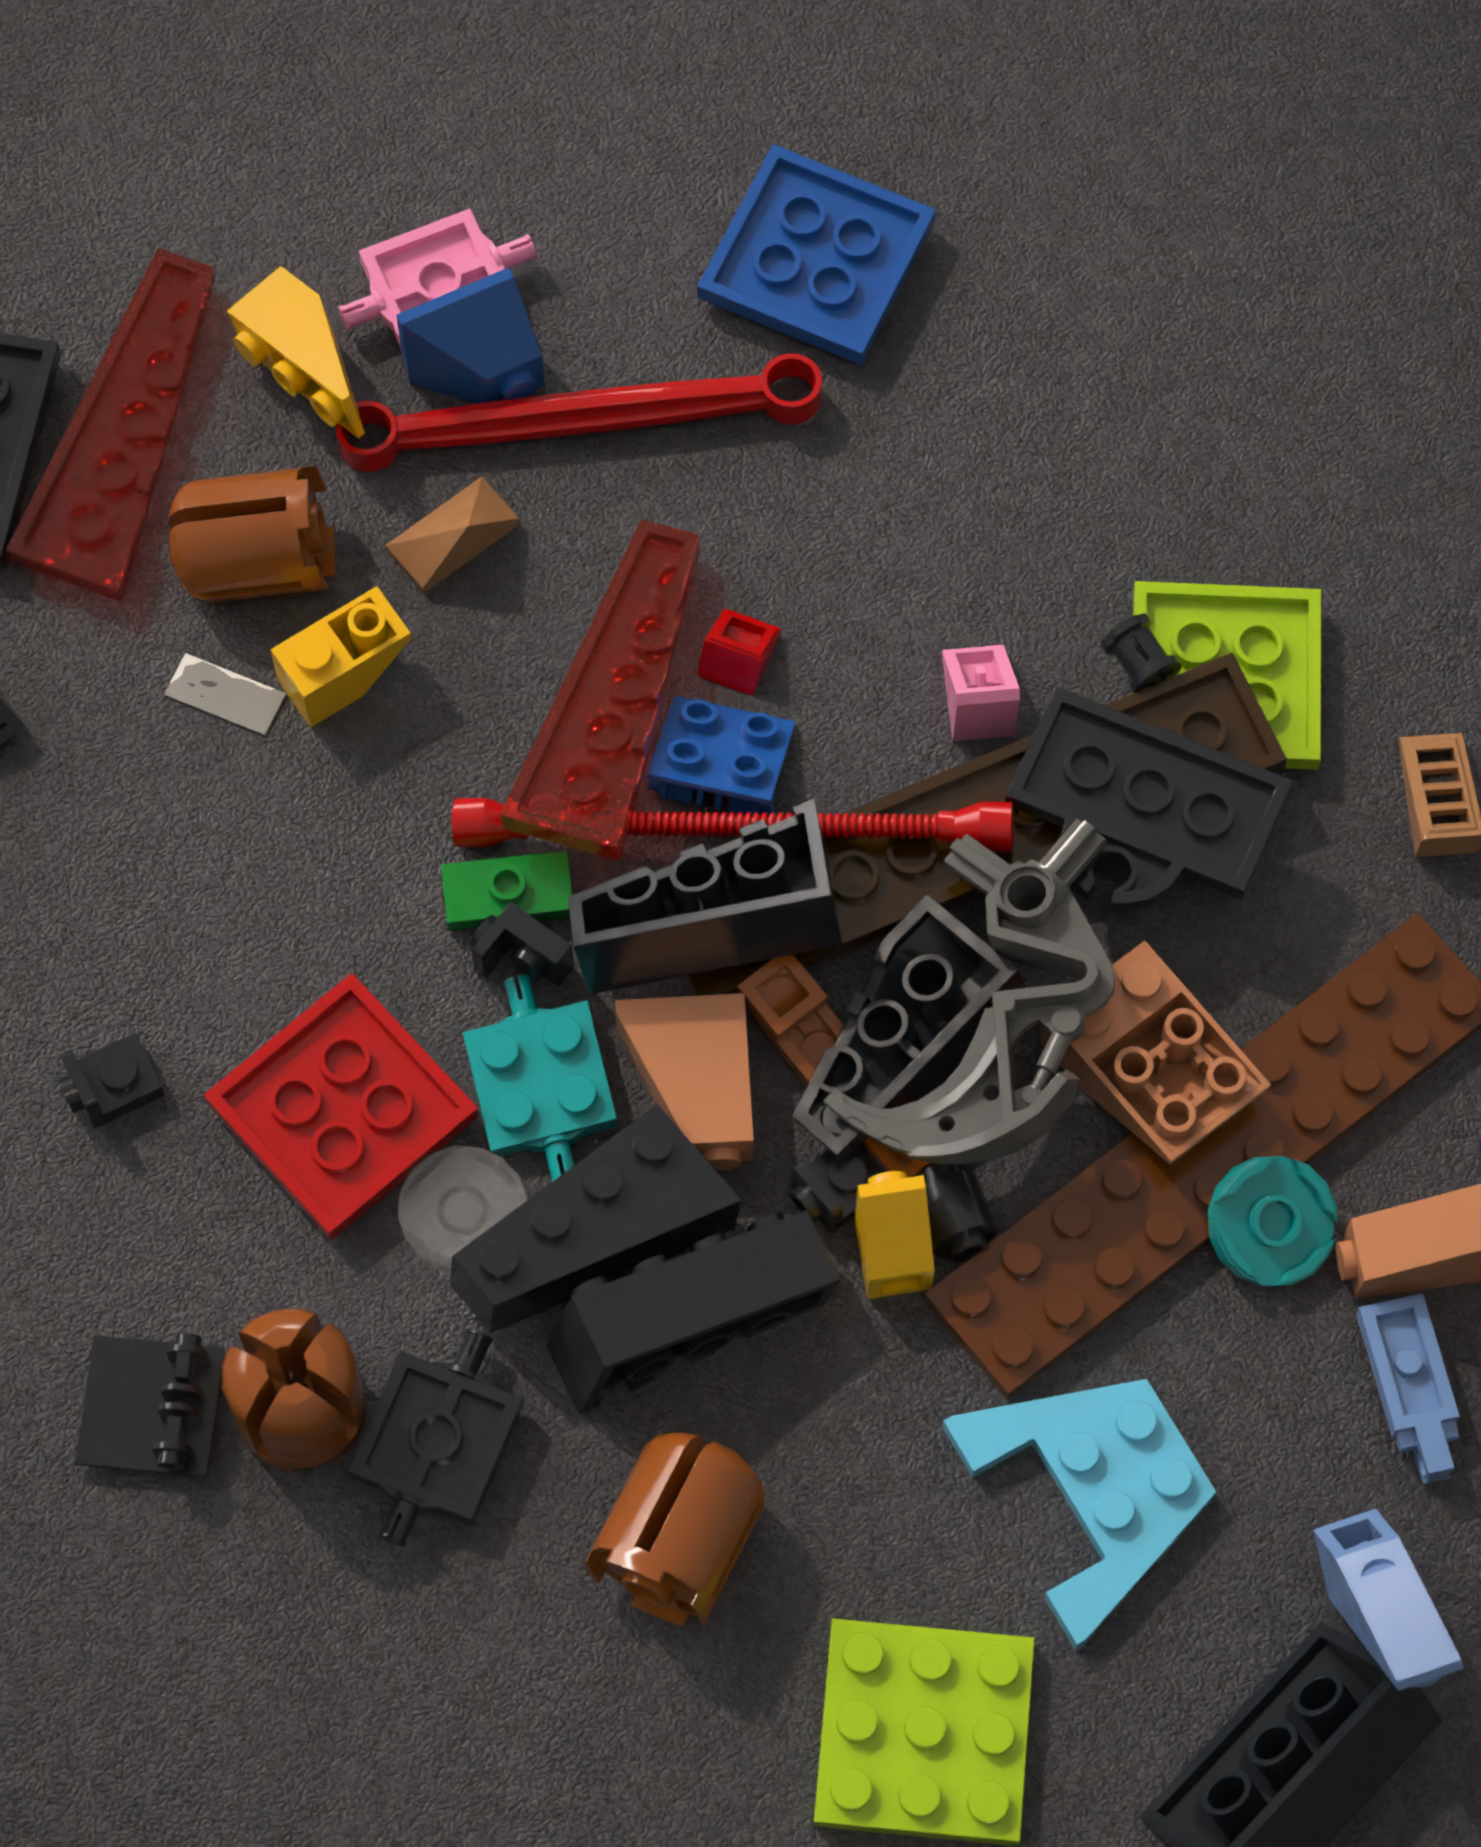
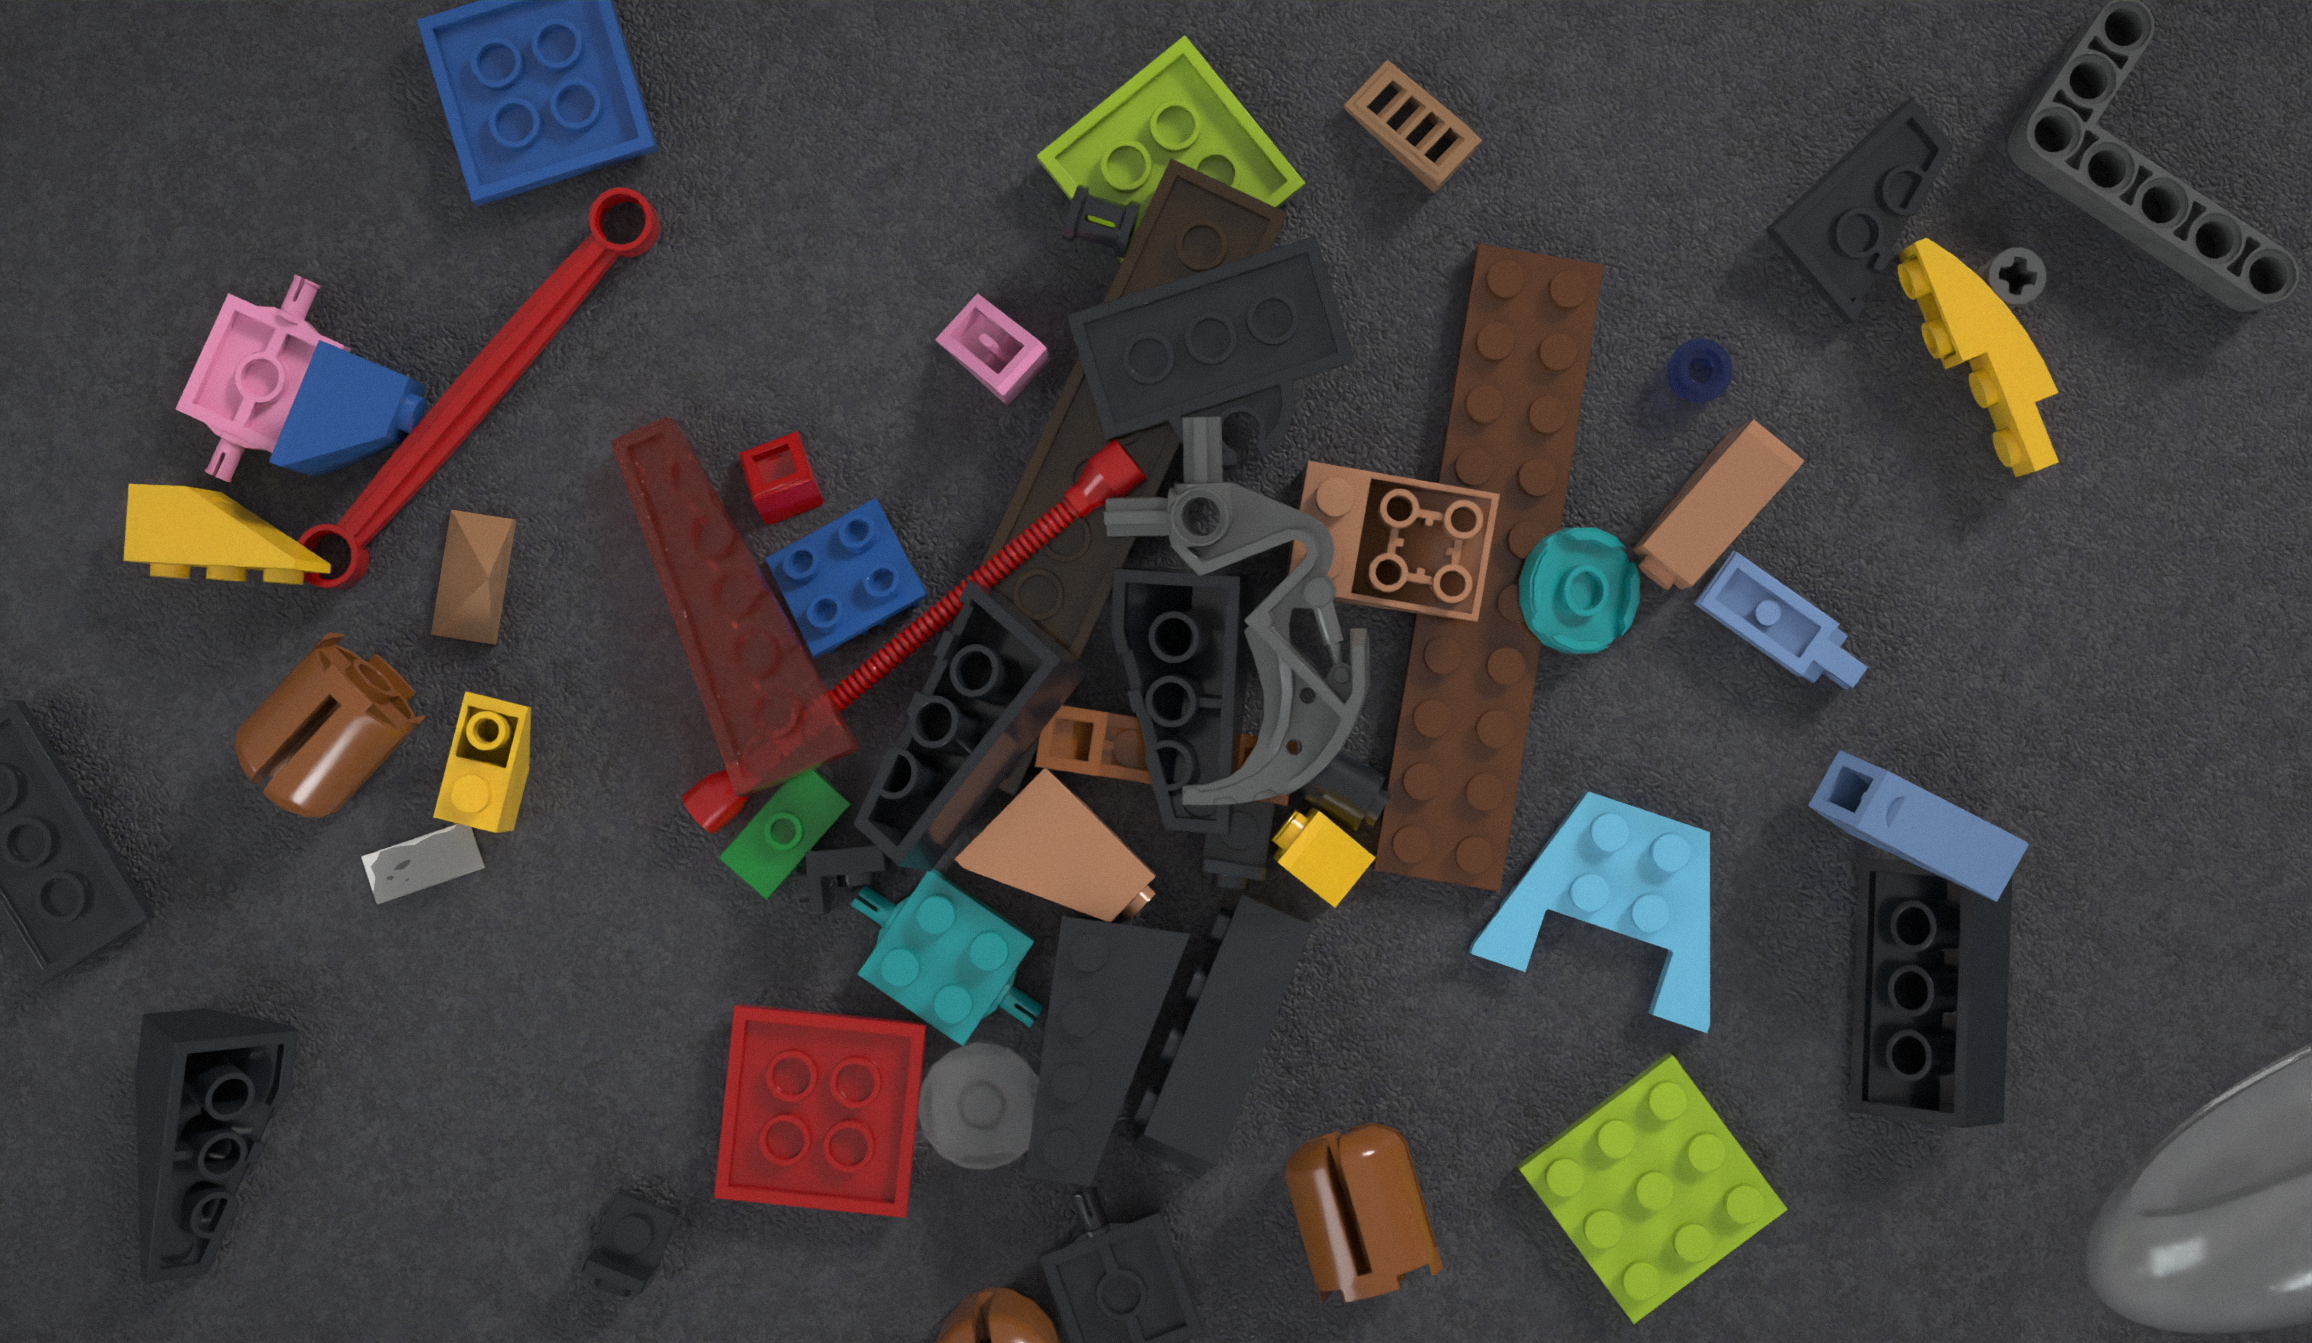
camera: 40 degrees left, 20 degrees up
(107, 465) = (151, 762): clear red wing -> none

